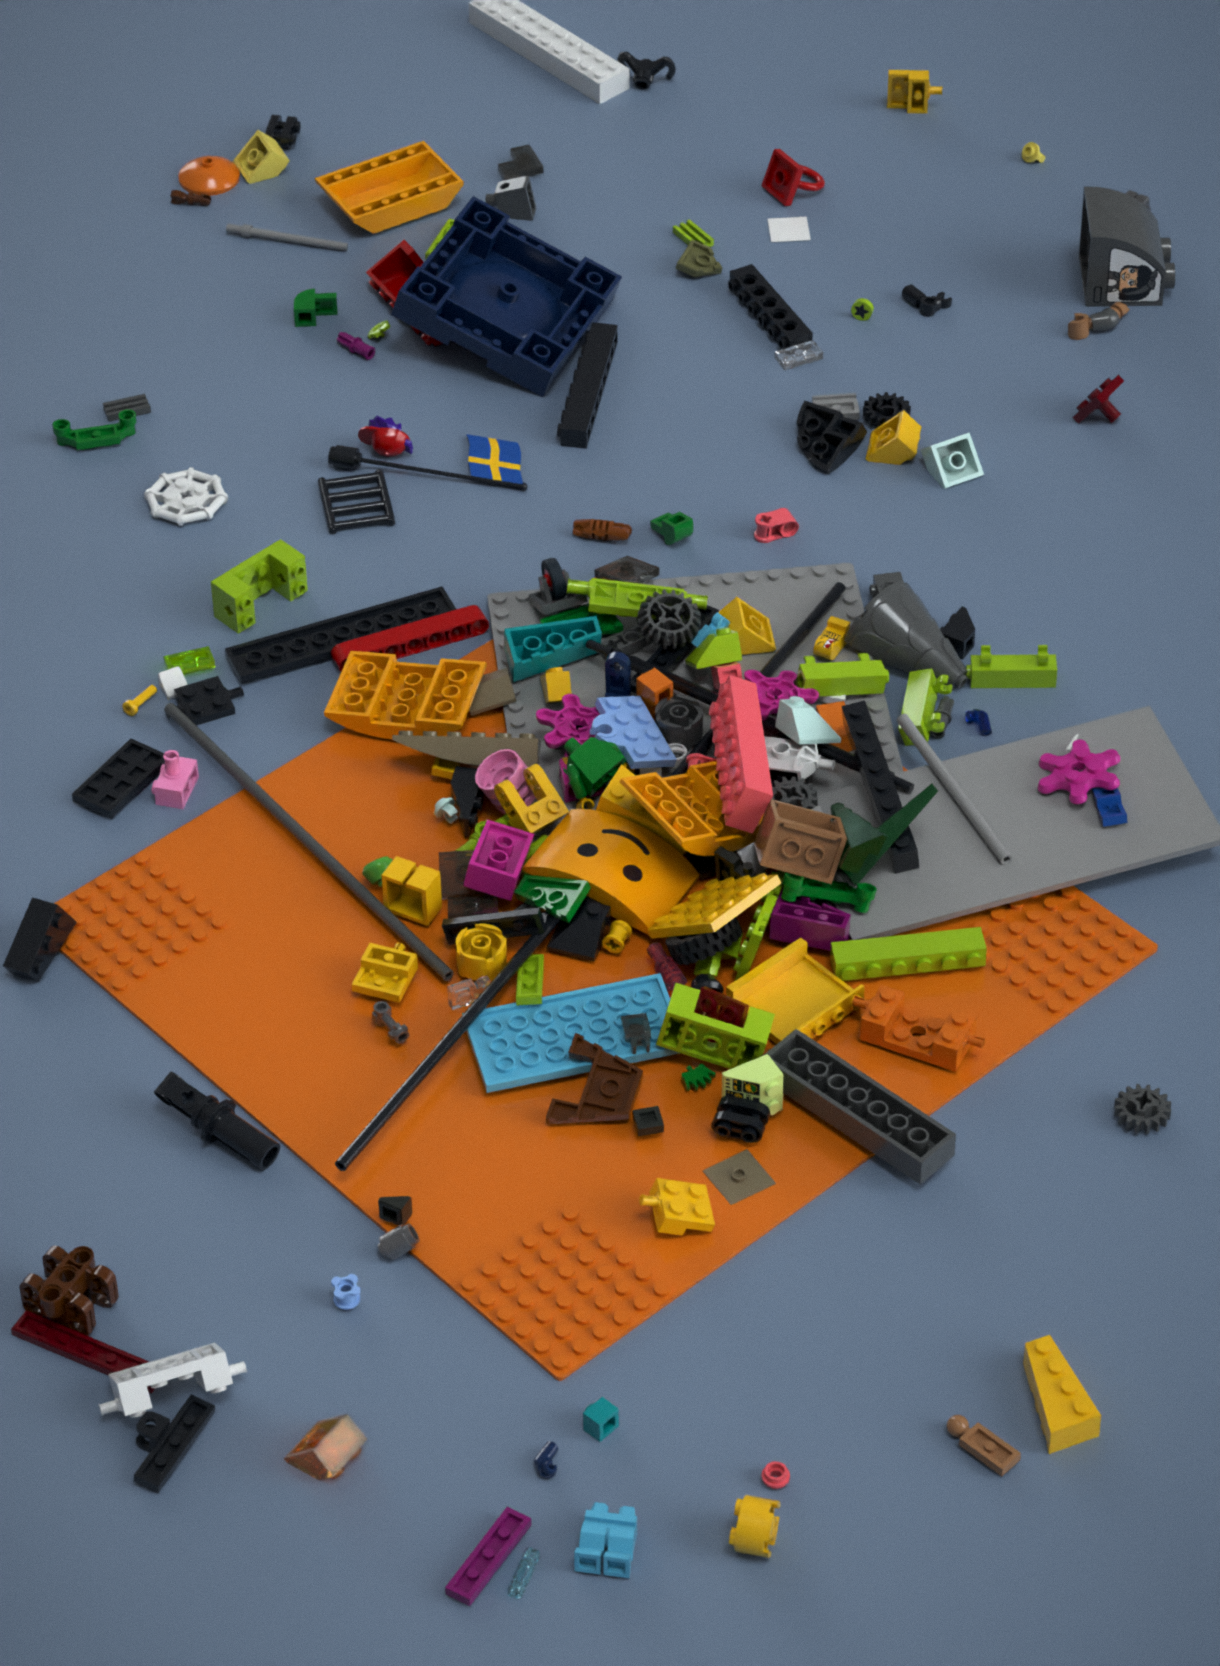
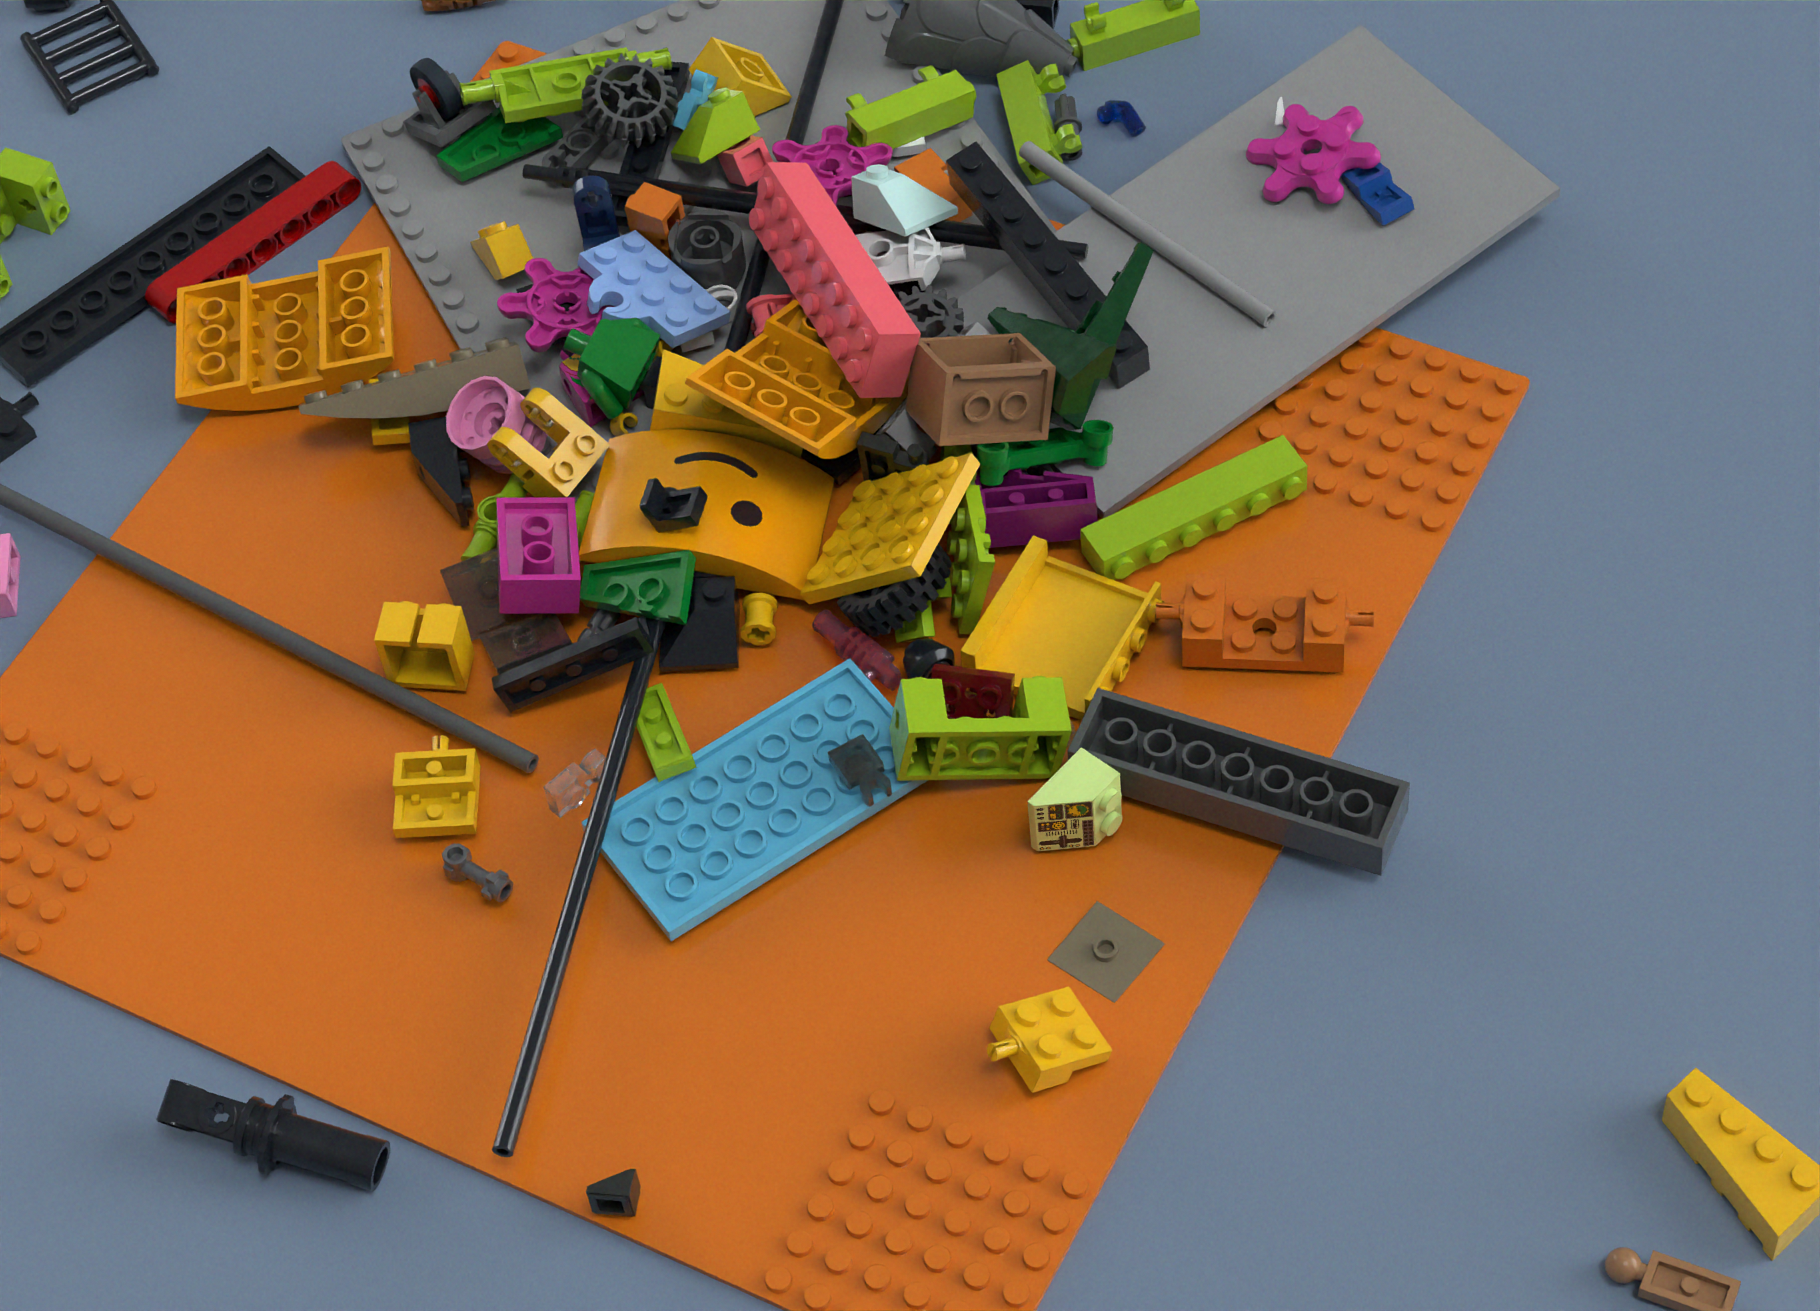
camera: 15 degrees left, 10 degrees up
(375, 869) = (359, 627): bright green cone -> none
(398, 1241) = (641, 1247): flat silver brick -> none
(446, 808) = (418, 493): light aqua plate -> none
(481, 951) = (570, 712): yellow brick -> none
(493, 692) = (415, 285): dark tan slope -> none
(548, 645) = (467, 192): teal wedge -> none
(586, 854) = (674, 508): none -> black bracket
(608, 1090) = (855, 877): reddish brown wing -> none
(627, 570) = (529, 43): clear smoke plate -> none
(648, 1121) = (936, 908): pearl dark grey plate -> none
(697, 1076) = (974, 808): green piece -> none
(740, 1119) = (1073, 859): black brick -> none
(832, 638) = (867, 57): yellow leg -> none
(1142, 1109) = (1636, 643): dark grey gear -> none

